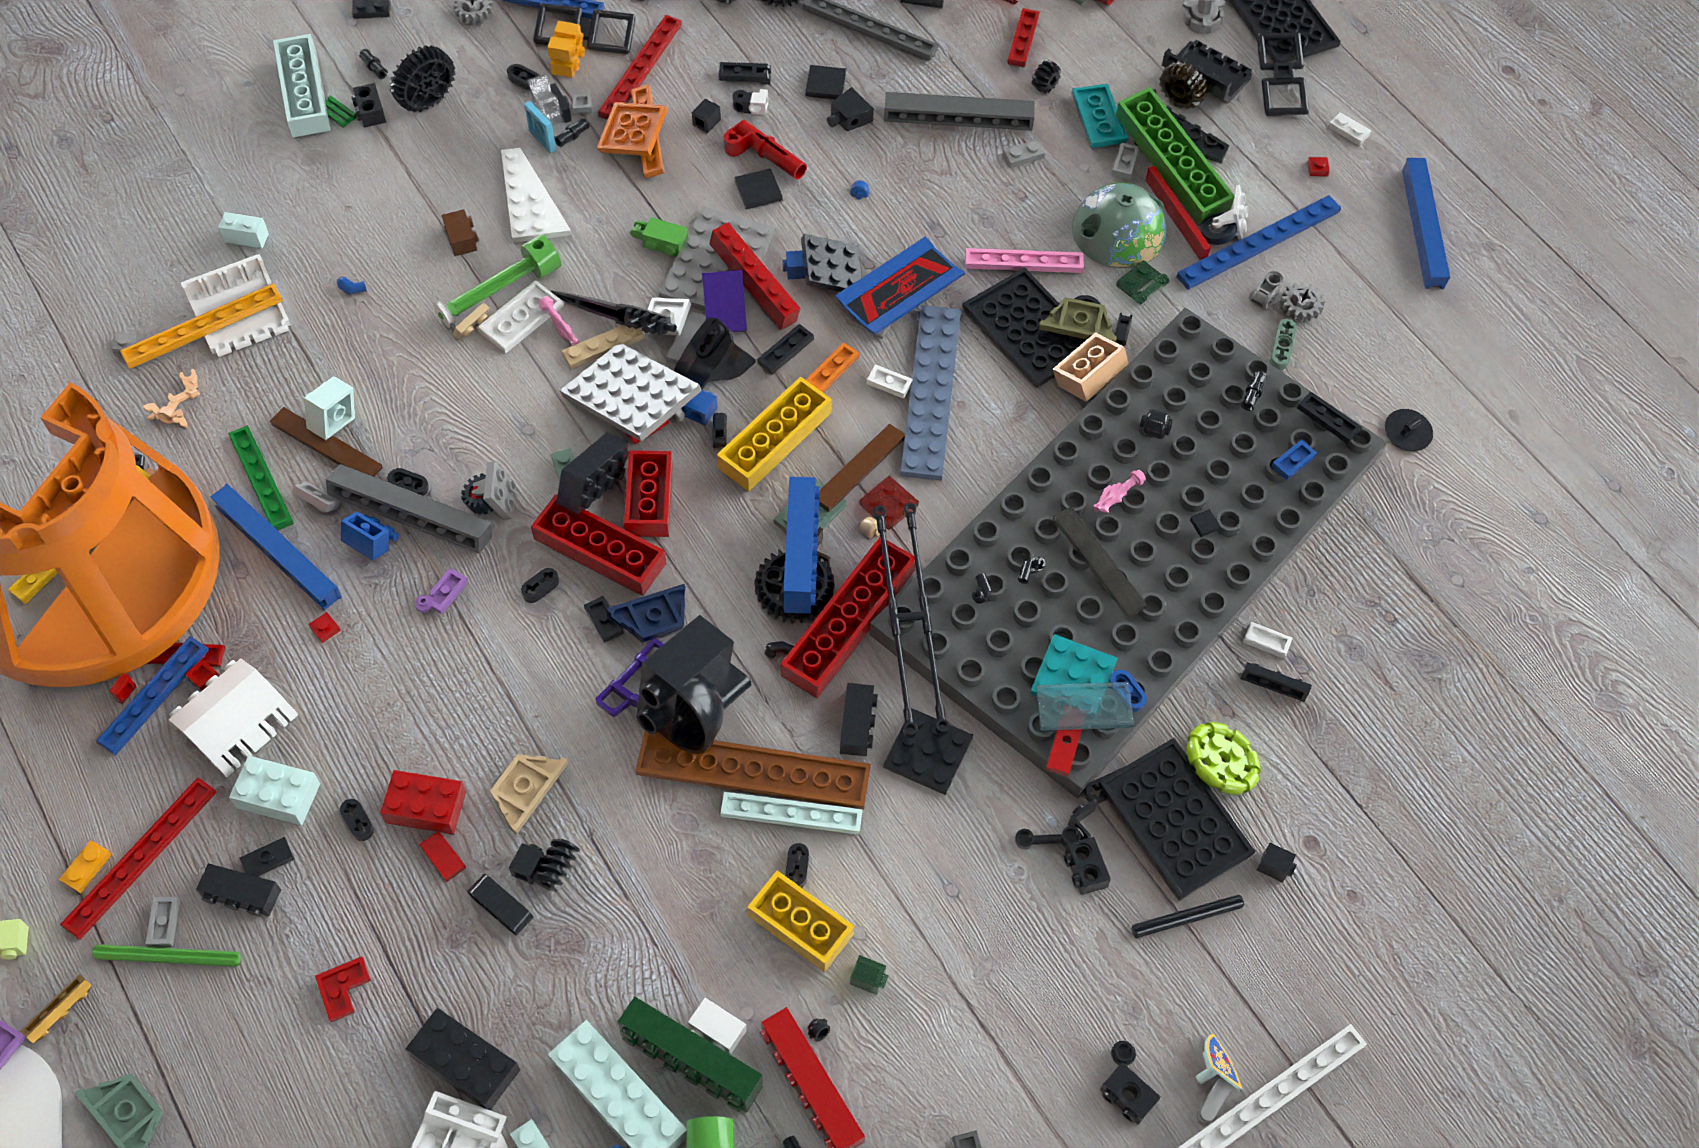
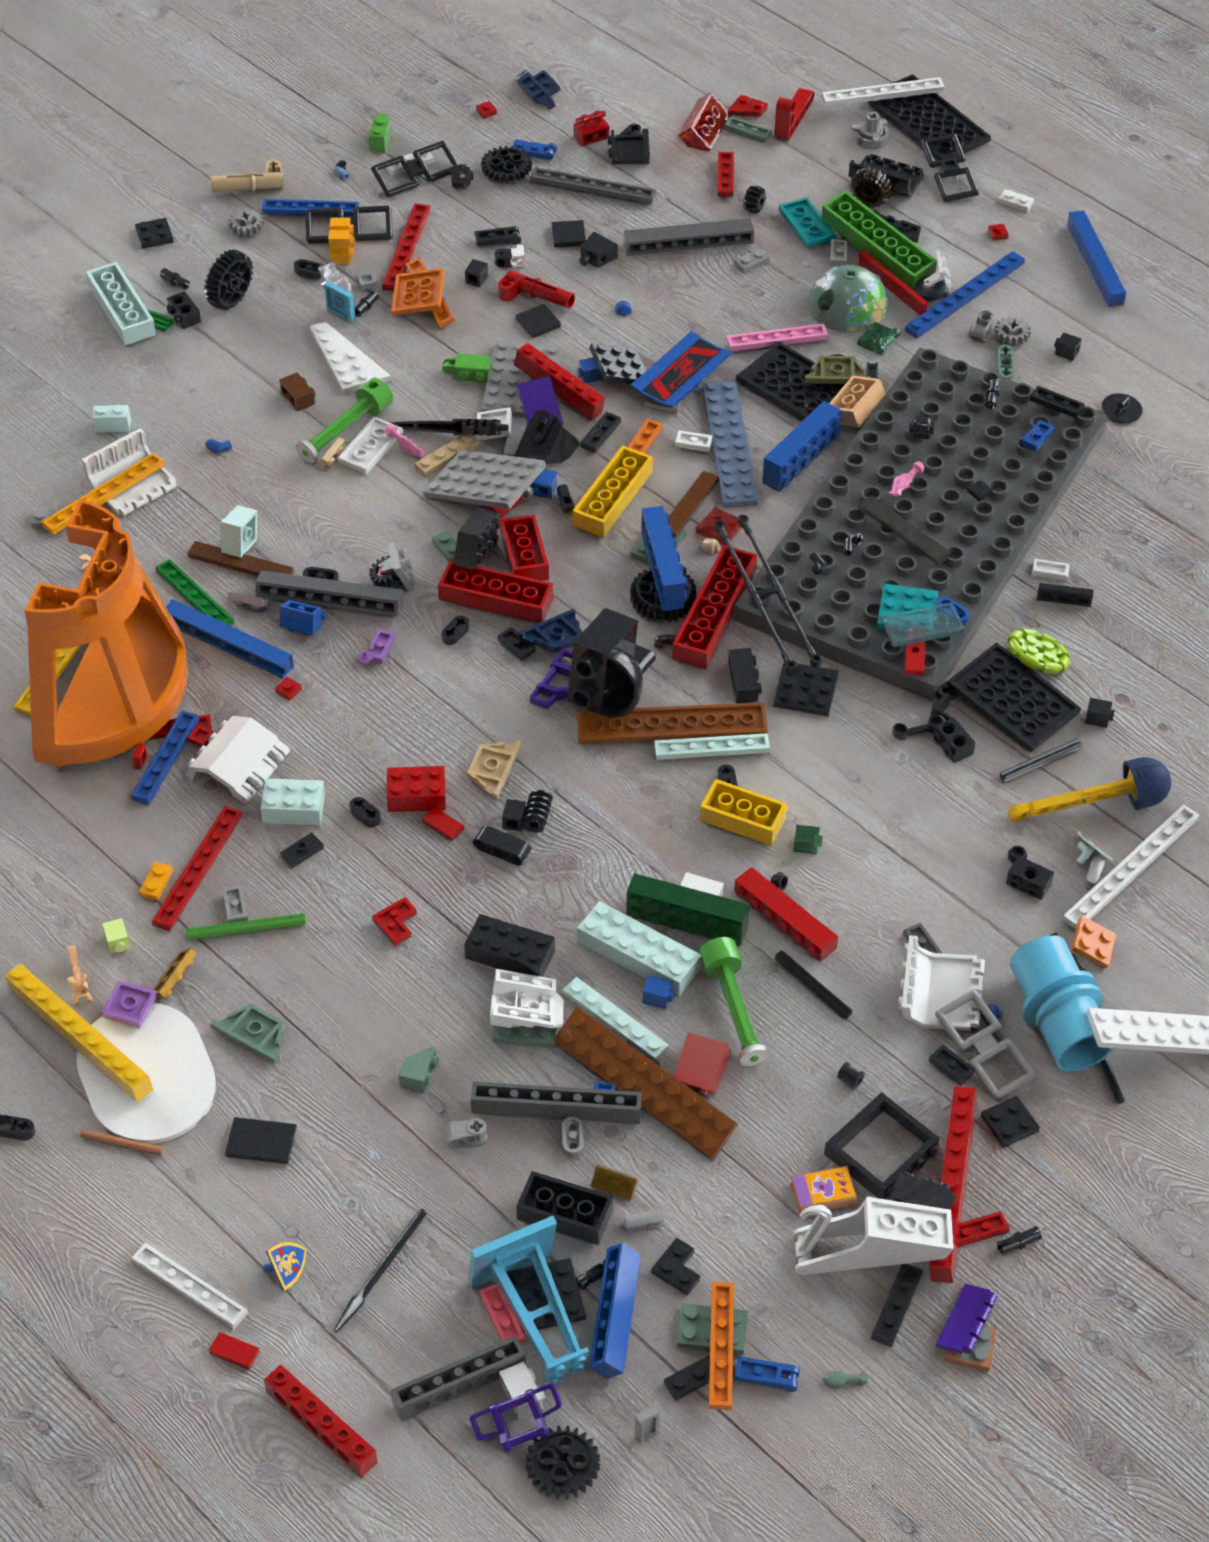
camera: 10 degrees left, 10 degrees down
(238, 890) = (288, 872): black brick -> none
(563, 103) = (355, 286): black plate -> none
(1011, 415) = (801, 446): none -> blue brick
(1309, 987) = (1144, 782): none -> piece
(1363, 335) = (1067, 346): none -> black brick

